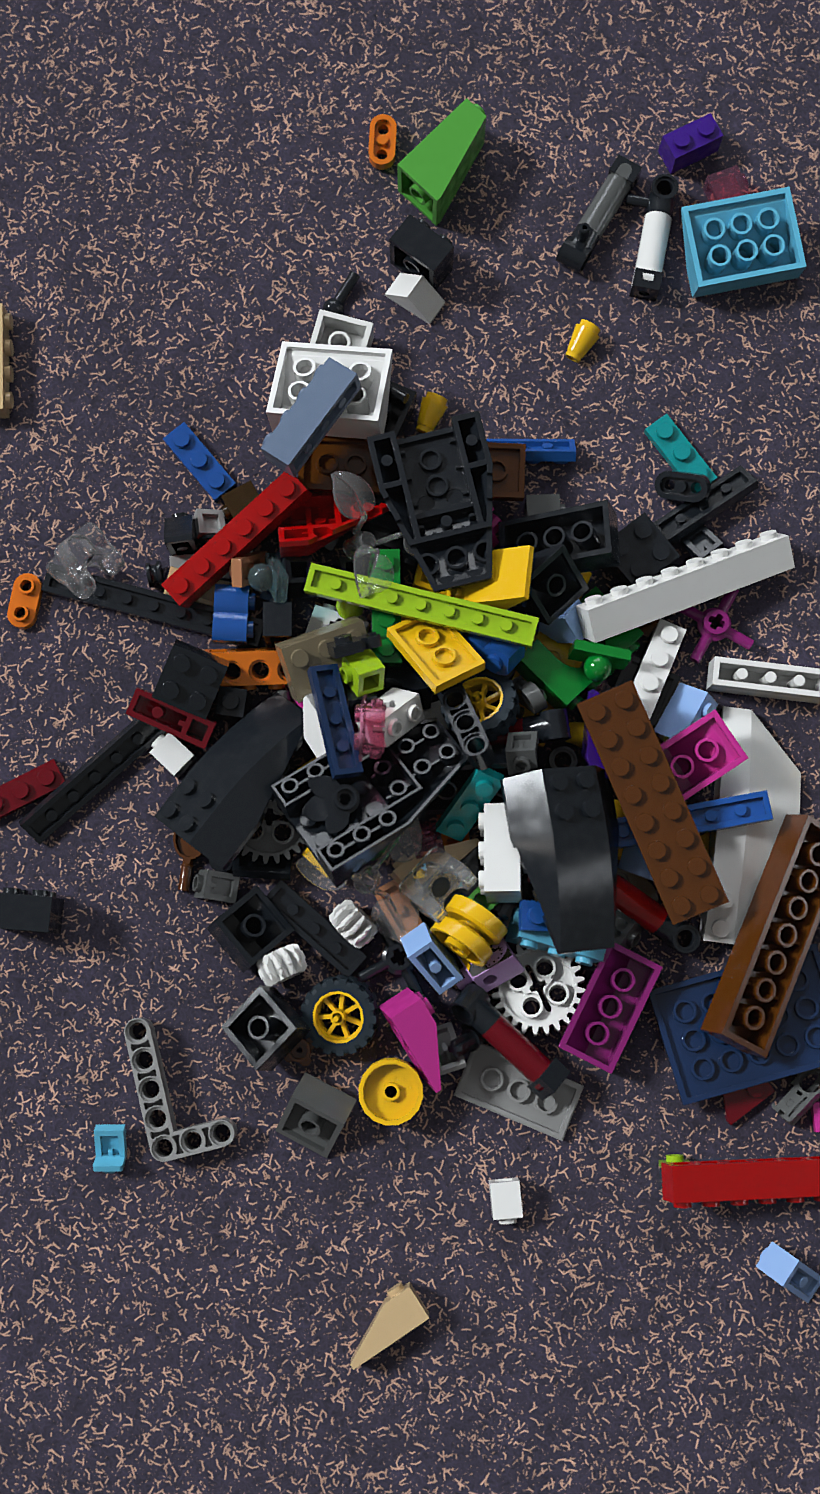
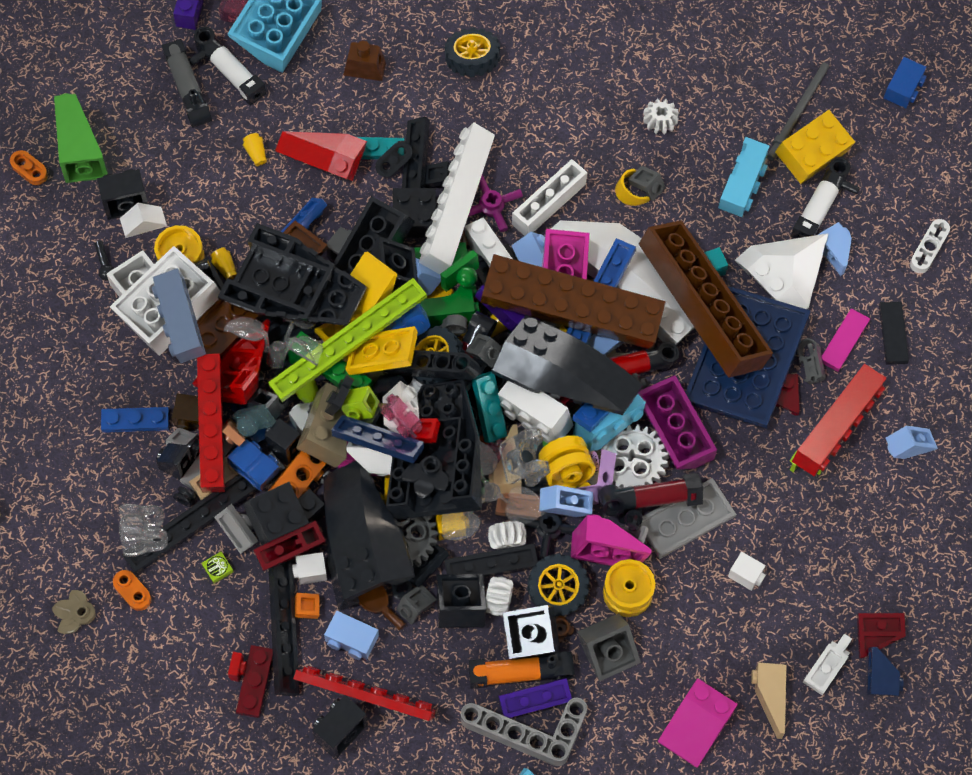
camera: 55 degrees left, 15 degrees down
(20, 763) = (237, 666): none -> red plate
(79, 911) = (356, 689): none -> red plate
(109, 663) = (217, 567): none -> lime tile
(133, 781) = (307, 605): none -> orange plate
(133, 849) = (351, 636): none -> light blue brick
(156, 650) = (237, 528): none -> light grey tile
(205, 1080) = (535, 698): none -> dark purple plate
(206, 1024) = (554, 667): none -> piece
(302, 1266) = (697, 723): none -> dark pink slope
(384, 767) = (429, 431): none -> red plate
(411, 356) = (182, 238): none -> yellow wheel
(468, 1359) = (828, 665): none -> white hinge
(495, 1428) = (882, 675): none -> dark blue slope
(546, 1386) = (879, 630): none -> dark red wing
(633, 411) = (327, 151): none -> red wedge
(769, 367) = (365, 61): none -> reddish brown torso

